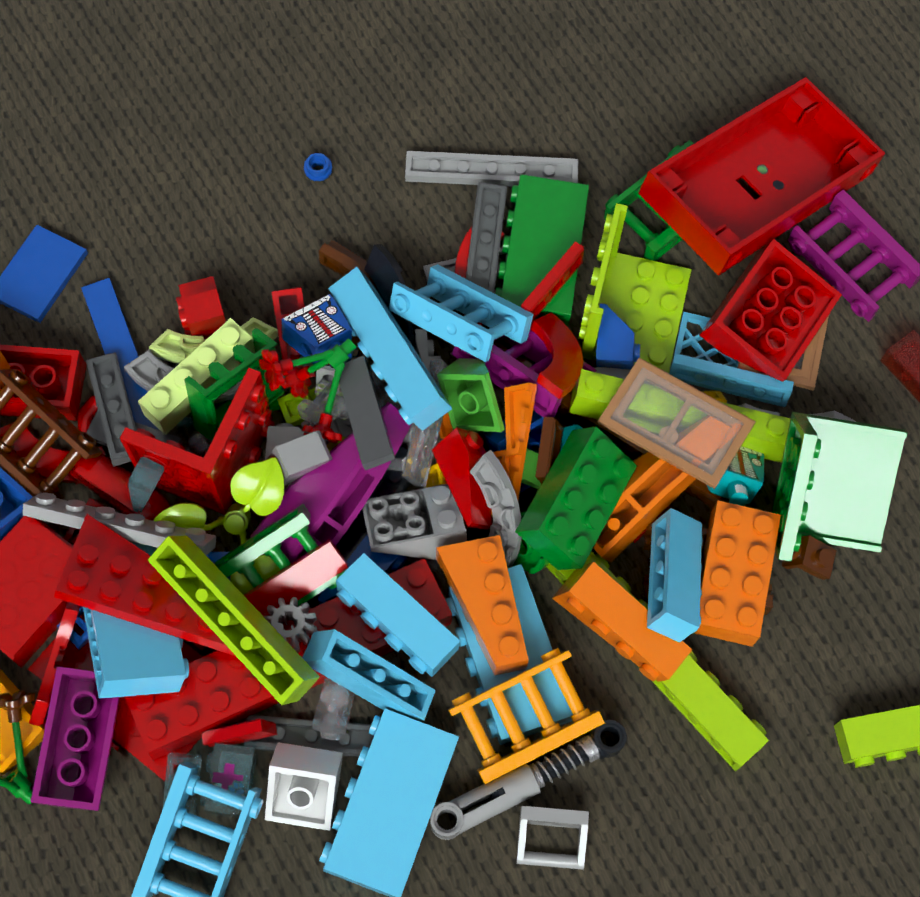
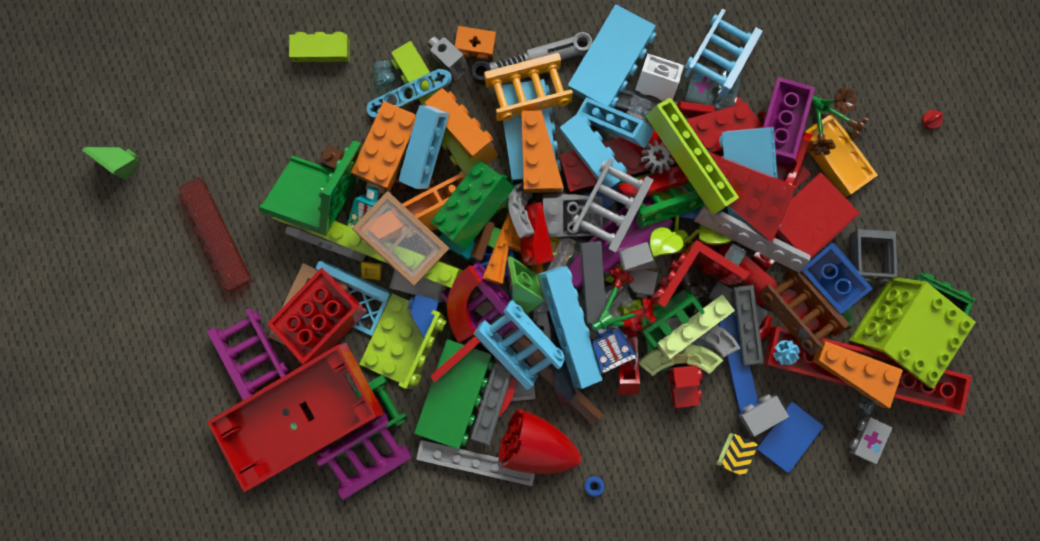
camera: 165 degrees left, 15 degrees up
(57, 369) = (786, 352): none -> medium azure gear
(80, 287) = (763, 415): none -> light grey brick
(115, 232) = (737, 454): none -> piece
(330, 500) = (631, 203): none -> light grey fence
(410, 194) = (536, 446): none -> red cylinder
(555, 818) = (520, 34): light grey tile -> none
(636, 133) = (364, 475): none -> magenta fence
(648, 797) = (486, 42): none -> orange brick
(661, 745) = (448, 57): none -> light grey torso
(712, 682) = (415, 86): none -> medium azure beam
(768, 703) = (383, 72): none -> clear light blue wheel

